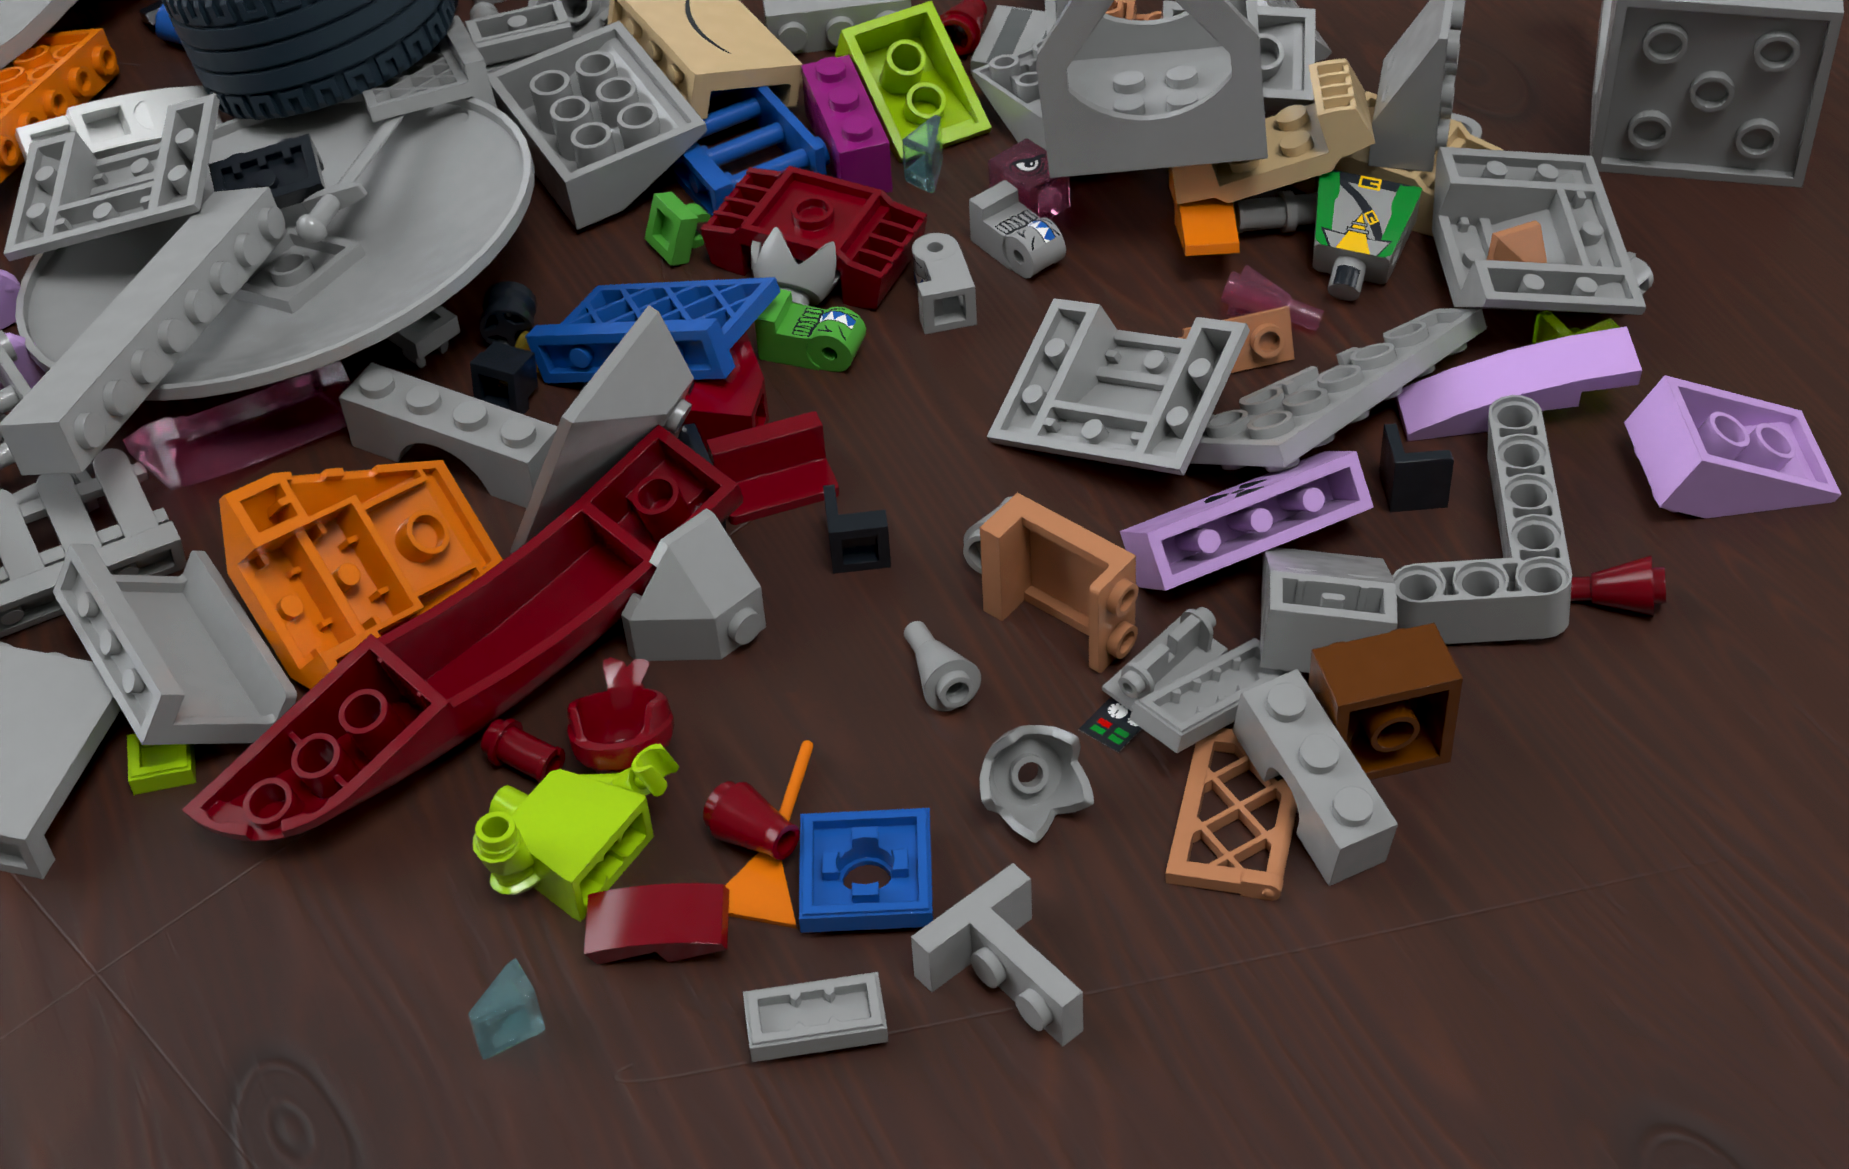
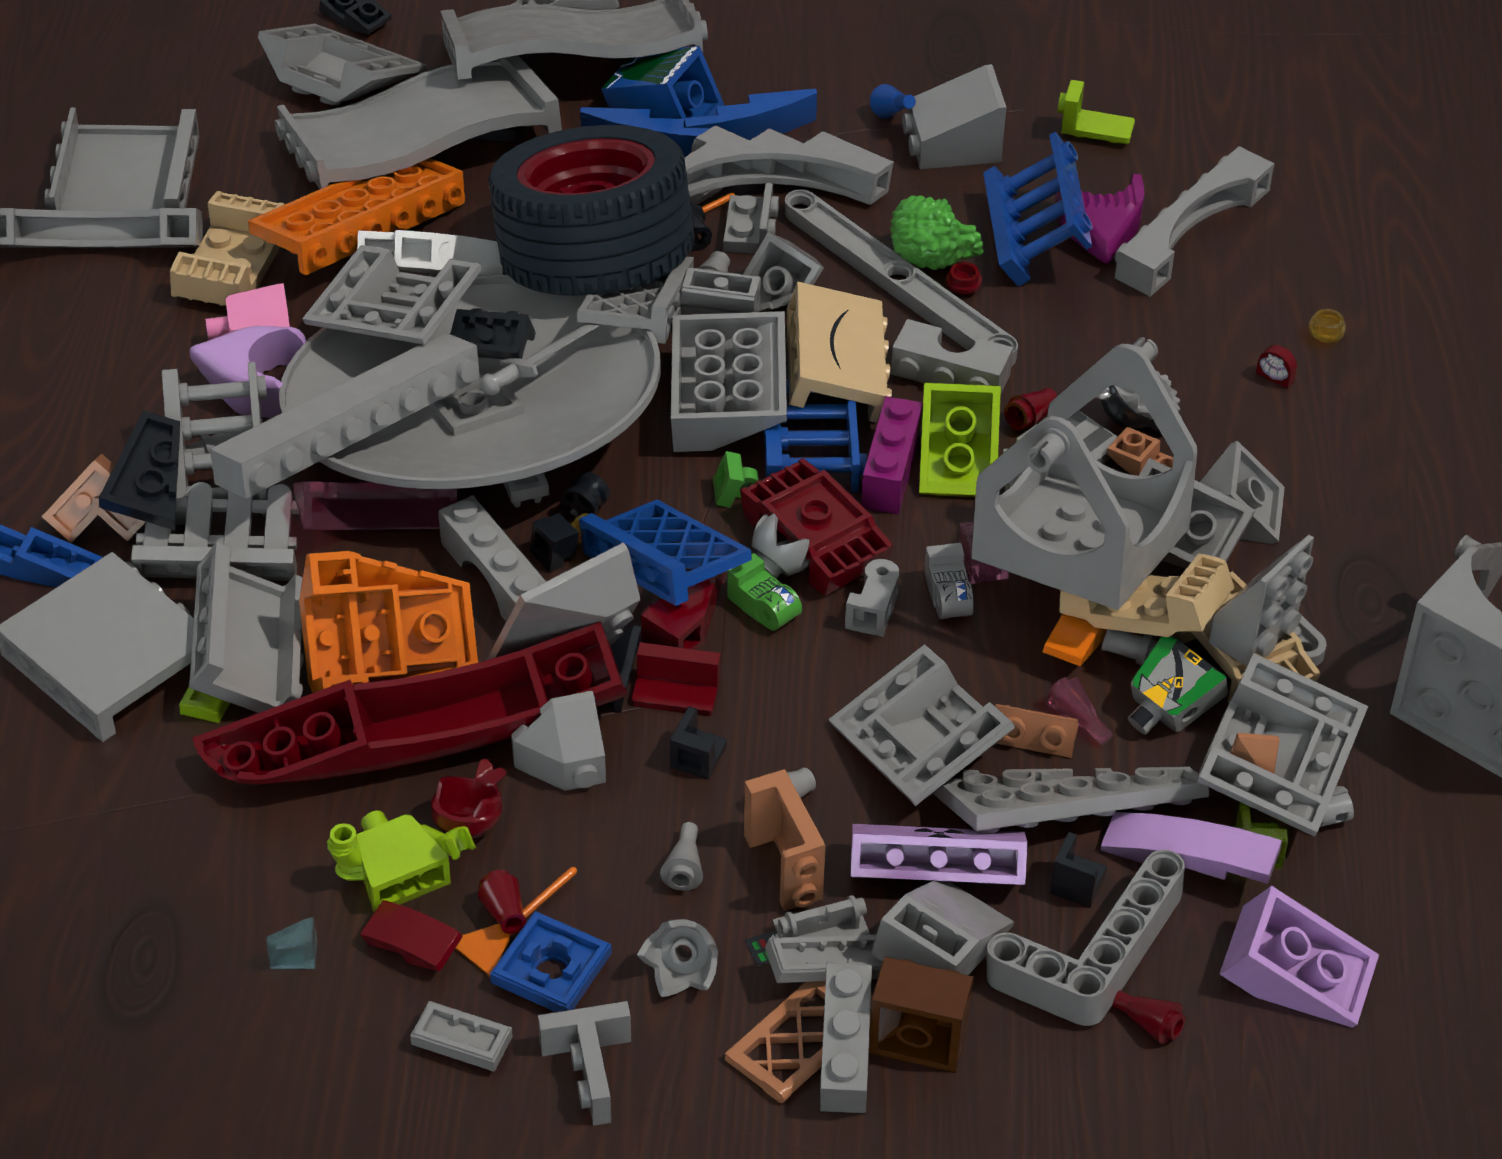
camera: 25 degrees right, 0 degrees up
(510, 745) = (402, 785): dark red pin -> none
(924, 155) = (932, 497): clear light blue slope -> none

